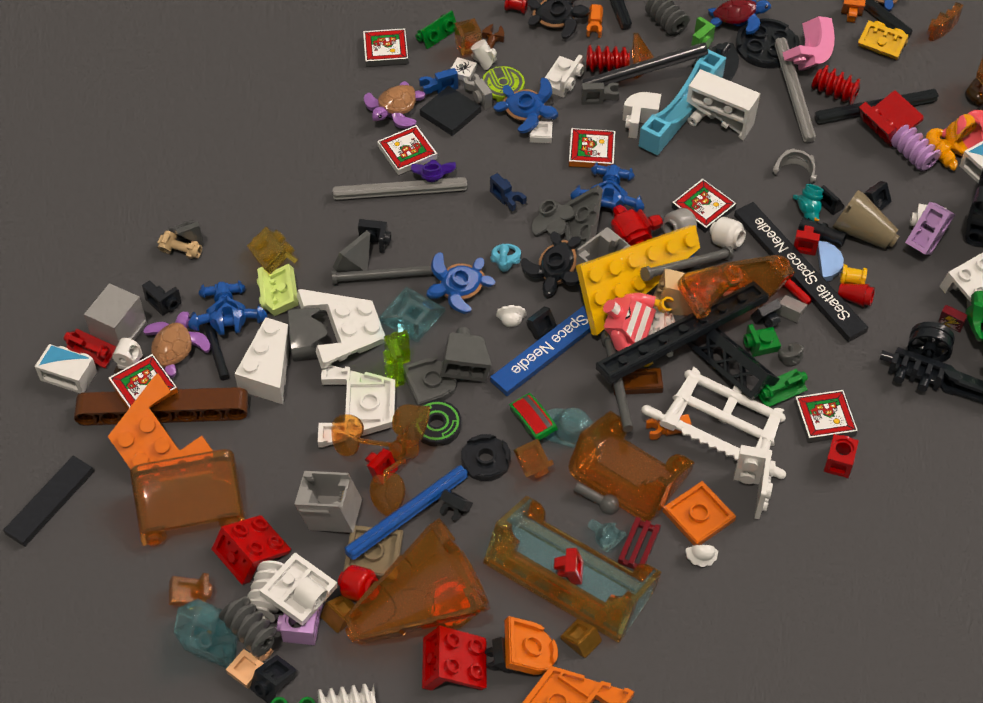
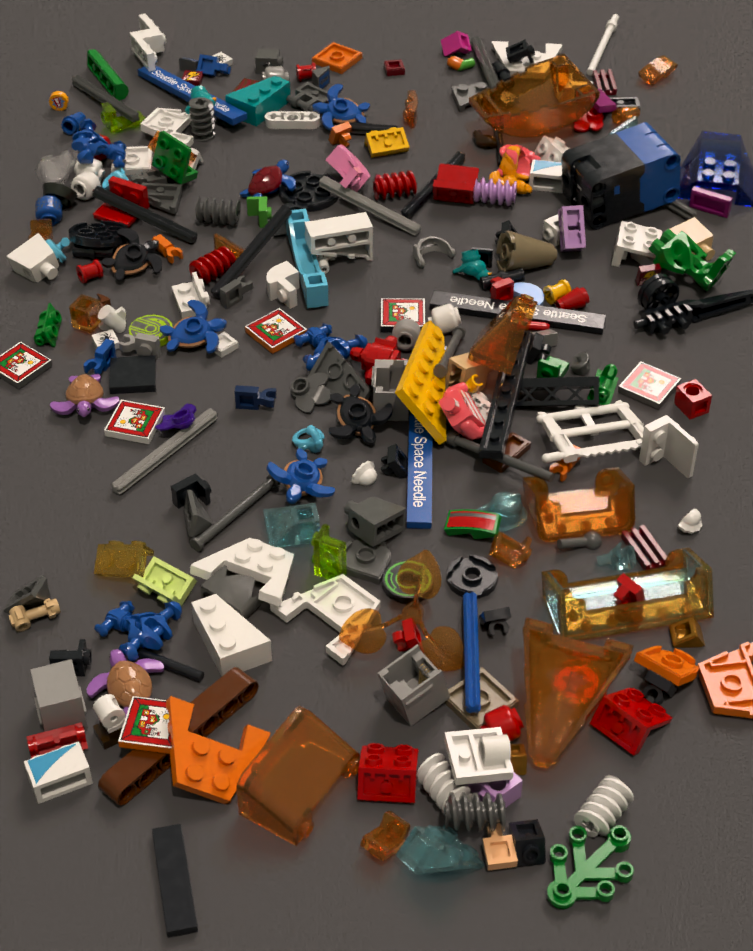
camera: 45 degrees left, 10 degrees down
(699, 514) = (657, 501): orange tile -> none

